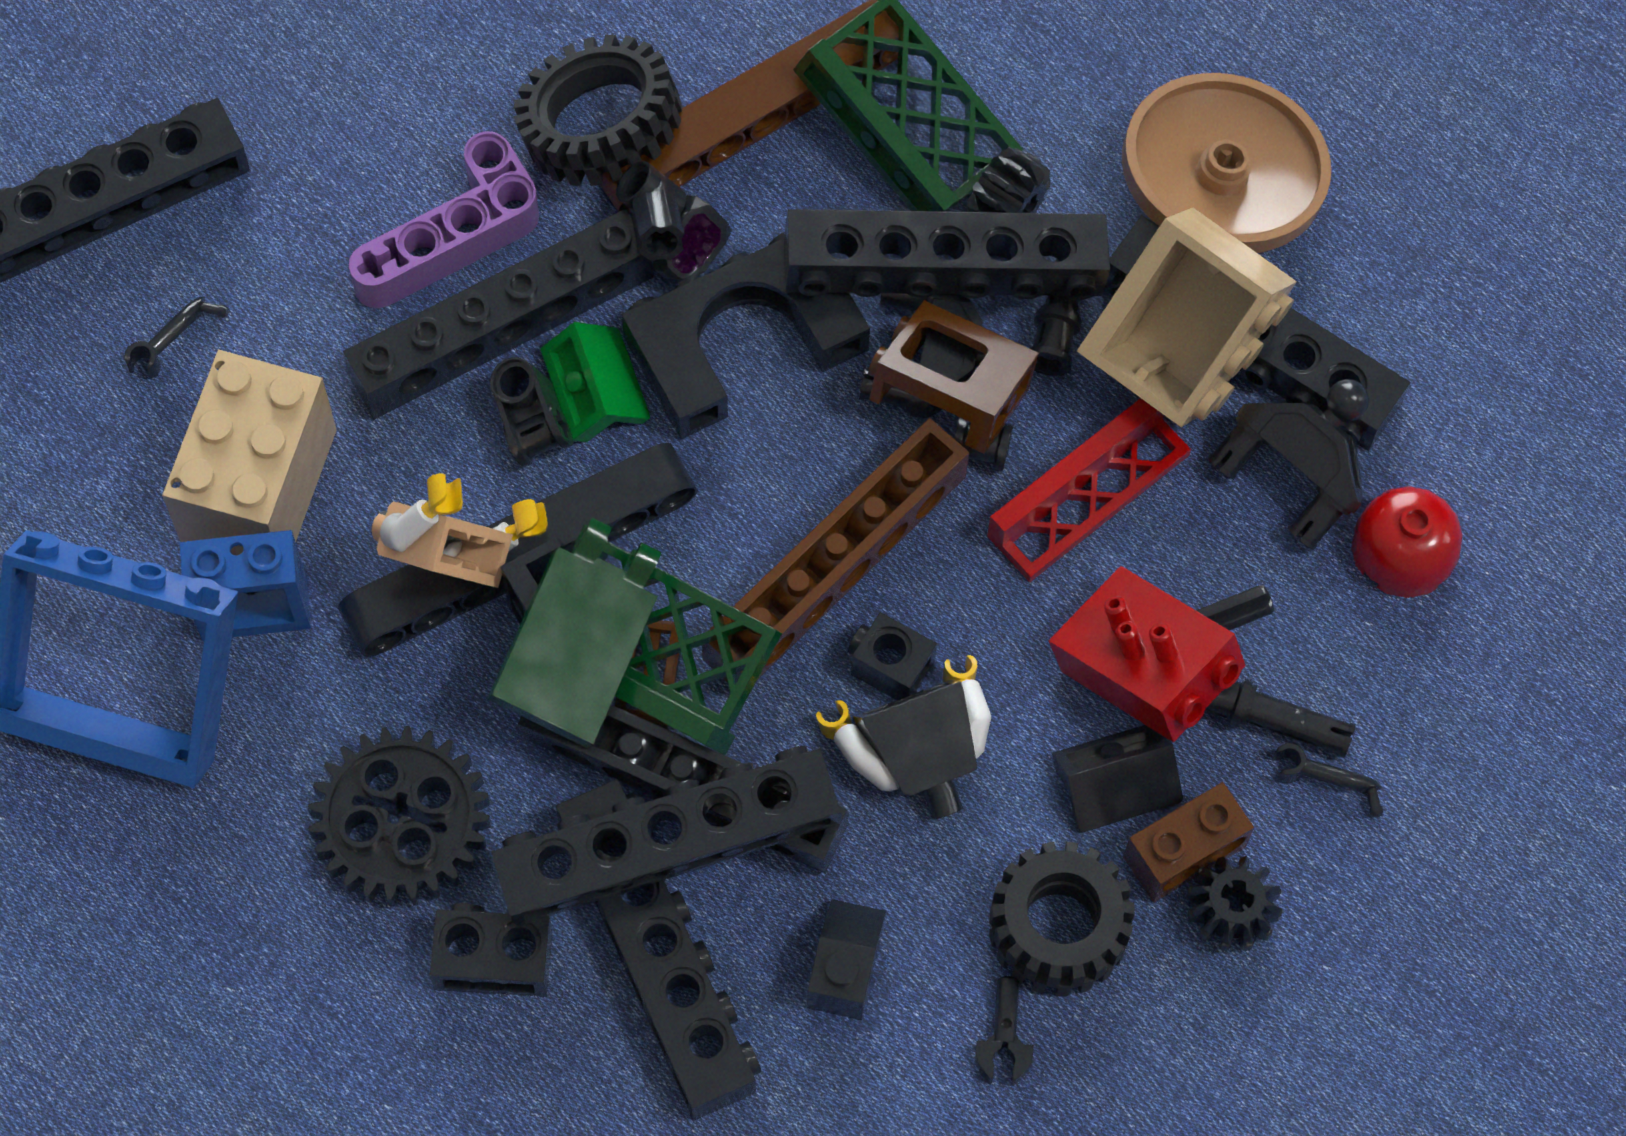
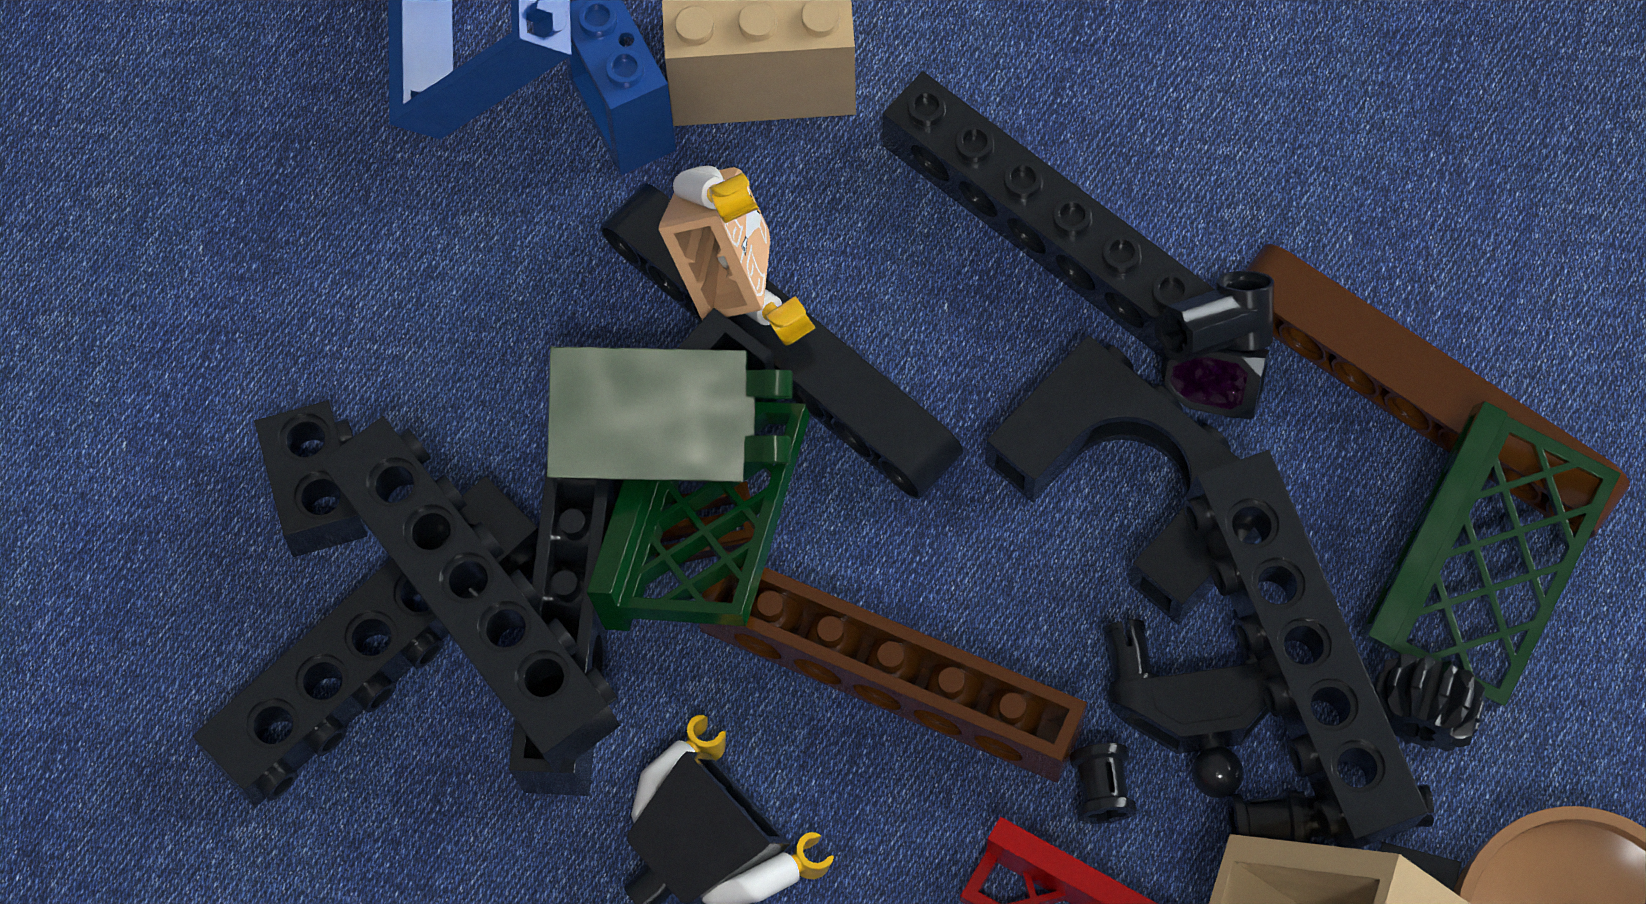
camera: 75 degrees right, 0 degrees up
(380, 860) = (488, 330): black gear -> none
(439, 227) = (1056, 83): medium lavender beam -> none
(534, 418) = (944, 287): black piece -> none
(584, 72) = (1315, 266): black tyre -> none
(593, 379) = (1012, 345): green panel -> none
(845, 959) = (428, 843): black slope -> none
(895, 679) = (797, 800): black brick -> none
(984, 399) = (1144, 759): reddish brown window -> none

